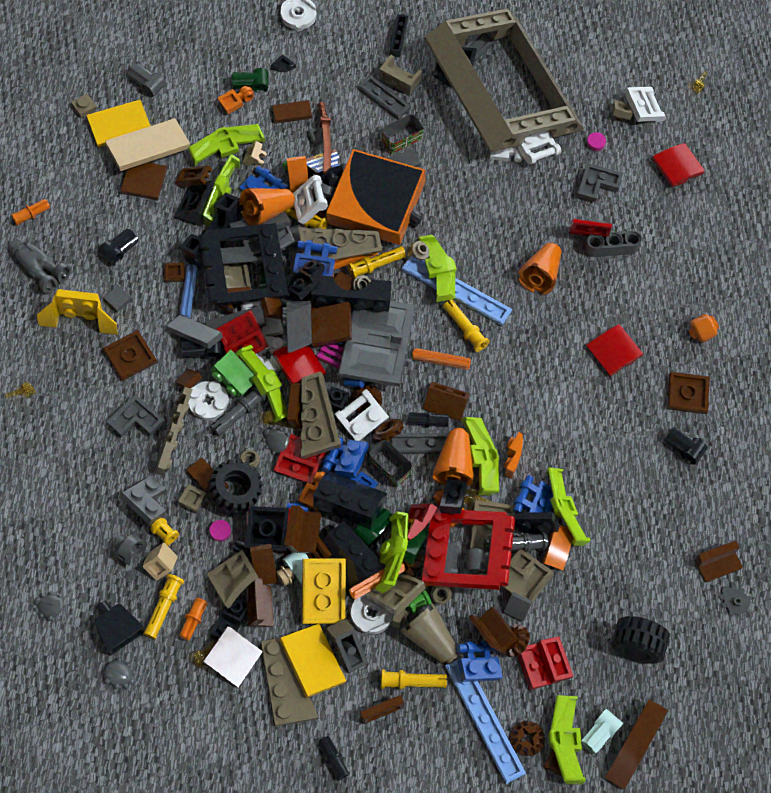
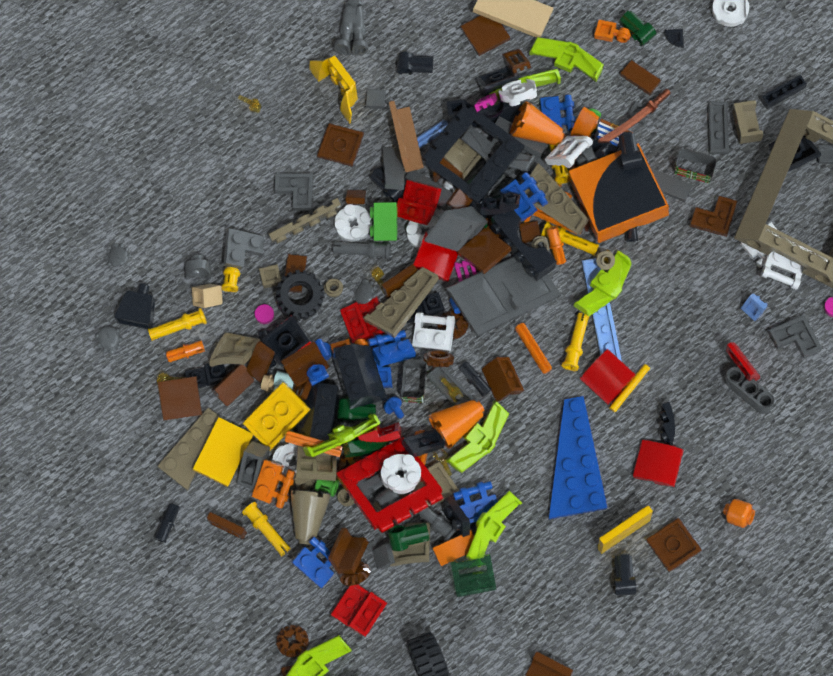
camera: 60 degrees right, 5 degrees up
(174, 272) = (431, 116): reddish brown tile -> none
(177, 301) = (406, 138): none -> medium nougat fence
(210, 225) = (485, 101): none -> dark pink tile
(228, 190) = (517, 91): none -> white plate
(253, 153) = (575, 83): tan tile -> none
(265, 381) = (398, 246): lime plate -> none
(319, 527) = (317, 374): none -> blue plate
(360, 160) = (630, 155): none -> black piece
(372, 271) = (556, 245): none -> orange axle
(373, 643) = (268, 481): none -> orange plate
(396, 495) = (393, 405): none -> blue plate
(426, 441) = (453, 391): none -> clear yellow hand
(458, 155) = (717, 221): none -> reddish brown plate
(469, 542) = (394, 482): none -> white plate
(487, 725) = (277, 608): light blue tile -> none
(514, 326) = (607, 377): none -> red slope
(515, 449) = (507, 456): orange slope -> none
(521, 571) = (402, 536): none -> dark green piece
(535, 320) = (629, 388): none -> yellow bar
(541, 269) = (675, 356): orange cone -> none
(550, 188) = (754, 307): none -> medium blue tile
(570, 410) = (577, 473): none -> blue wing
(598, 321) = (668, 429): none -> black slope
(600, 553) = (476, 581): none -> clear green plate
(652, 414) = (624, 529): none -> yellow tile

